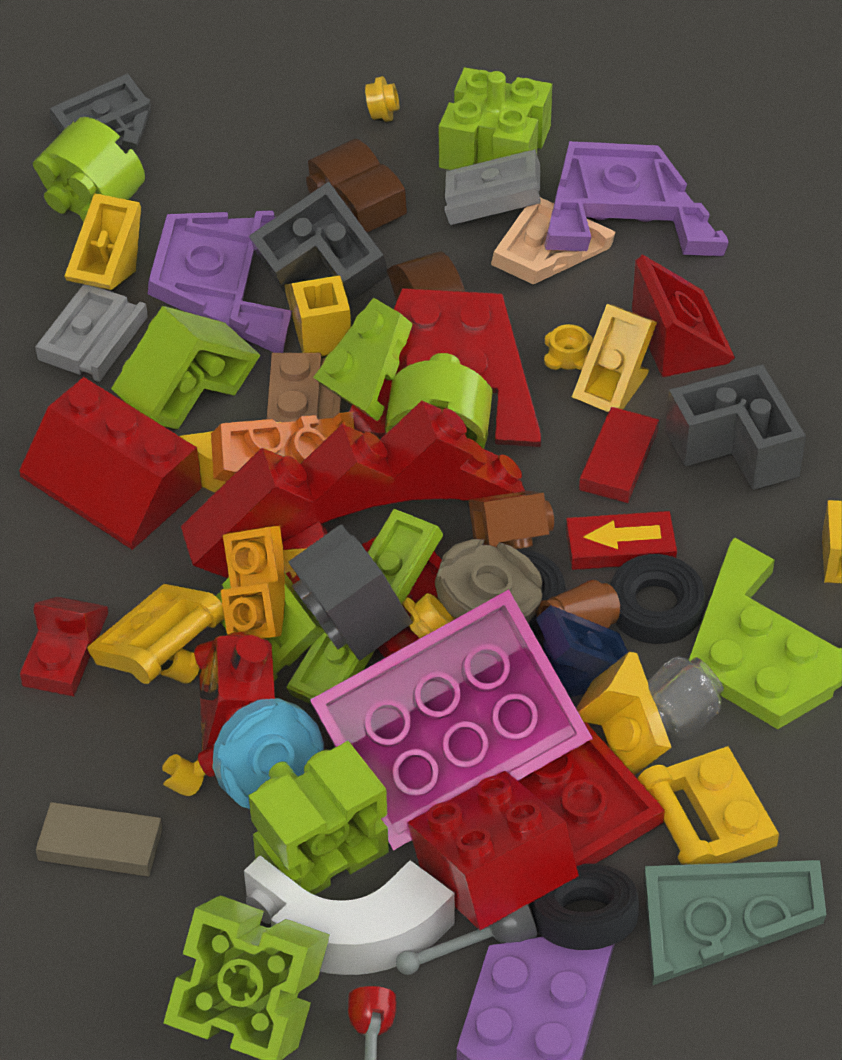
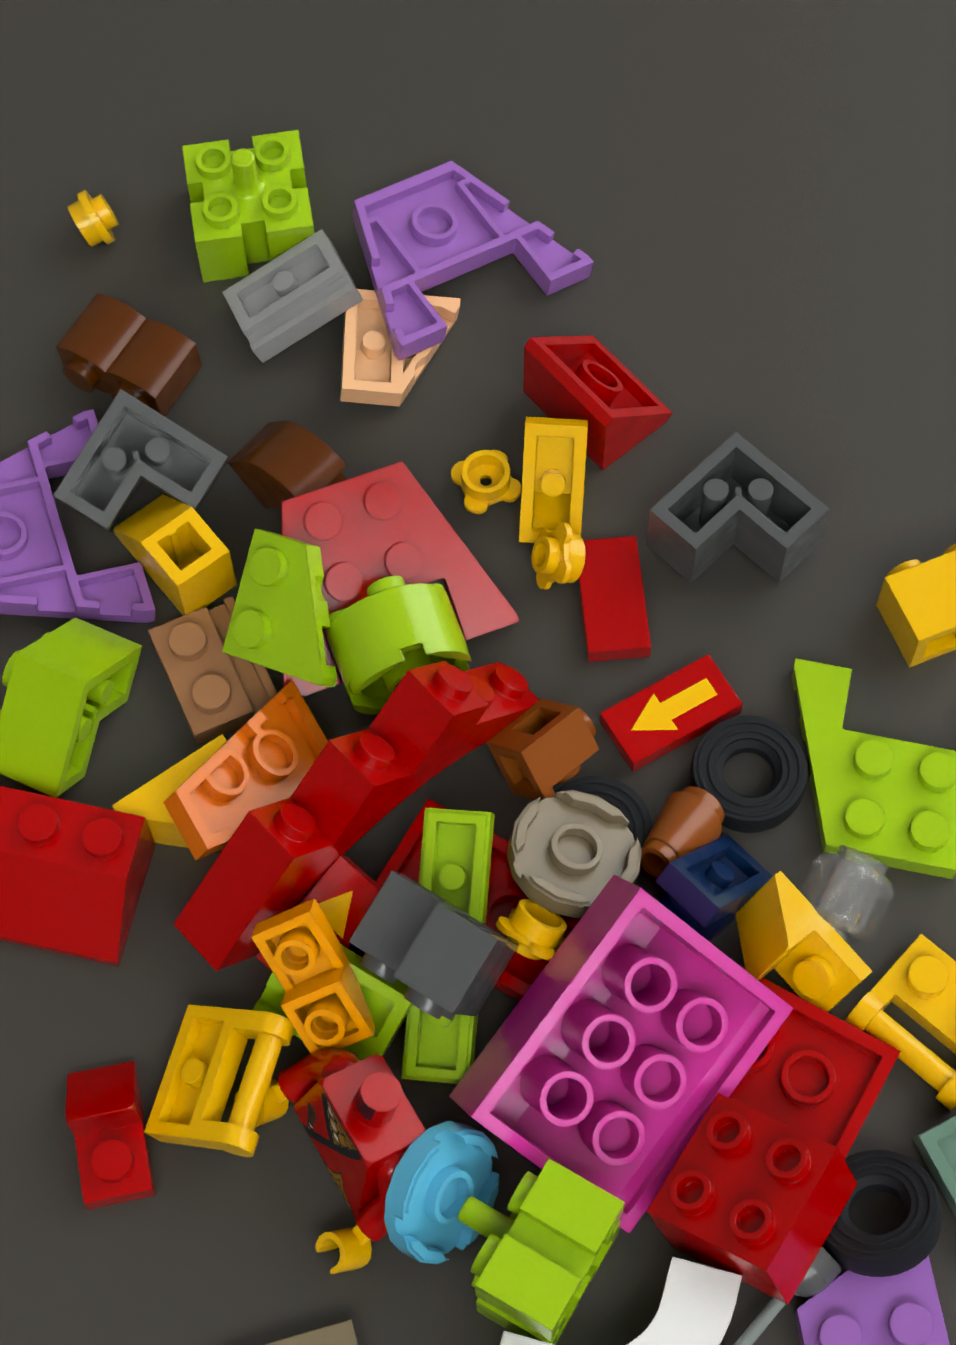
camera: 25 degrees left, 15 degrees up
(592, 410) = (558, 556): none -> yellow plate

